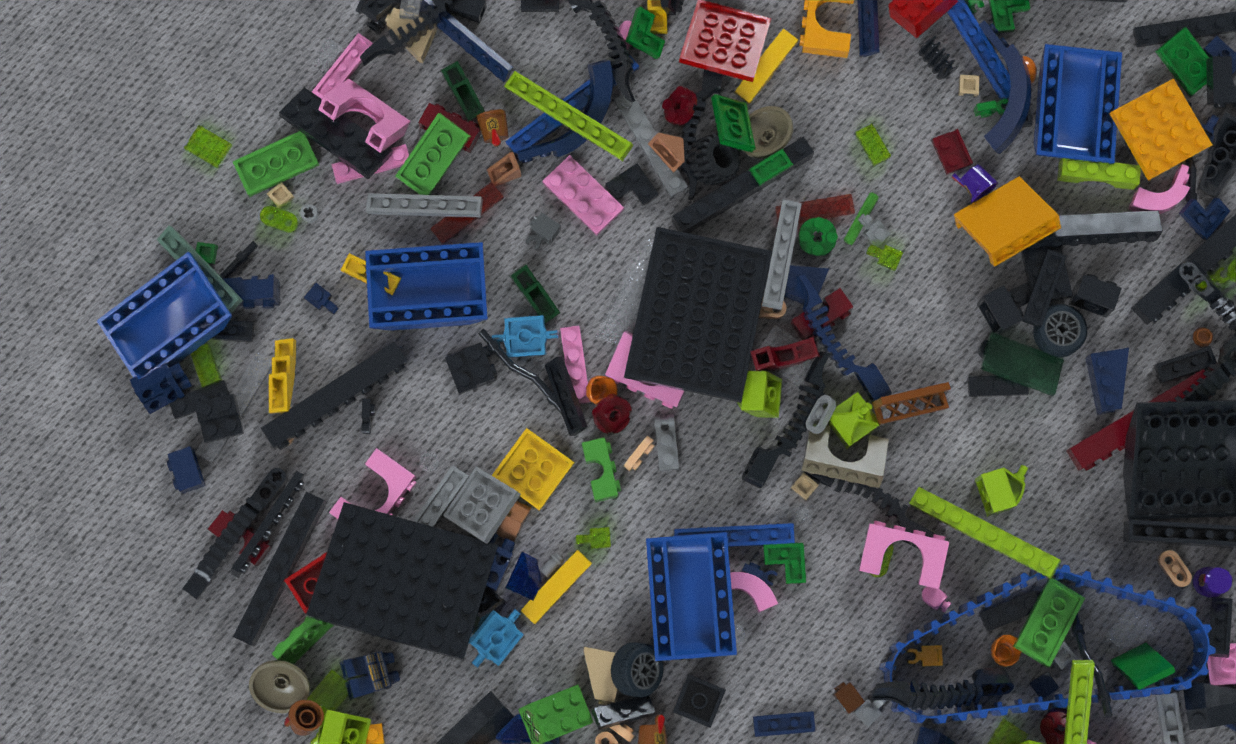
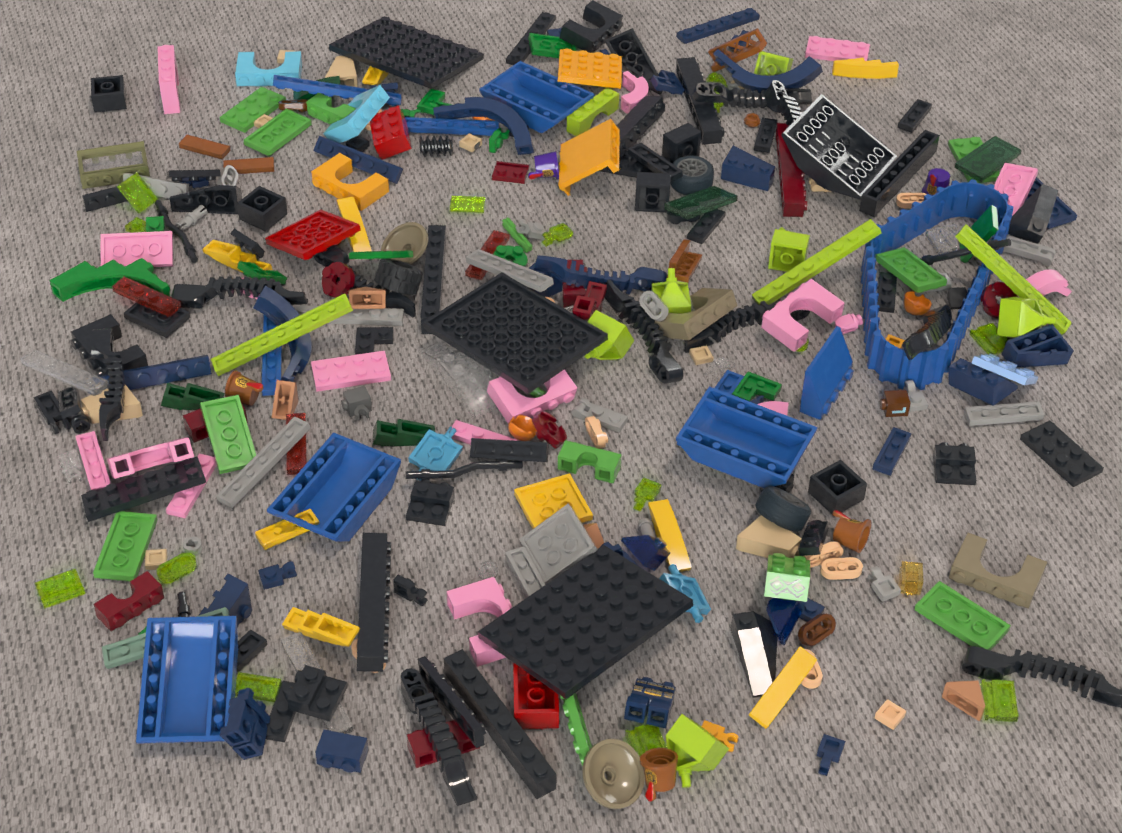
camera: 60 degrees left, 35 degrees down
(239, 216) = (116, 612): none -> dark red arch
(771, 167) = (436, 244): green plate -> none
(832, 622) = (826, 376): none -> blue slope

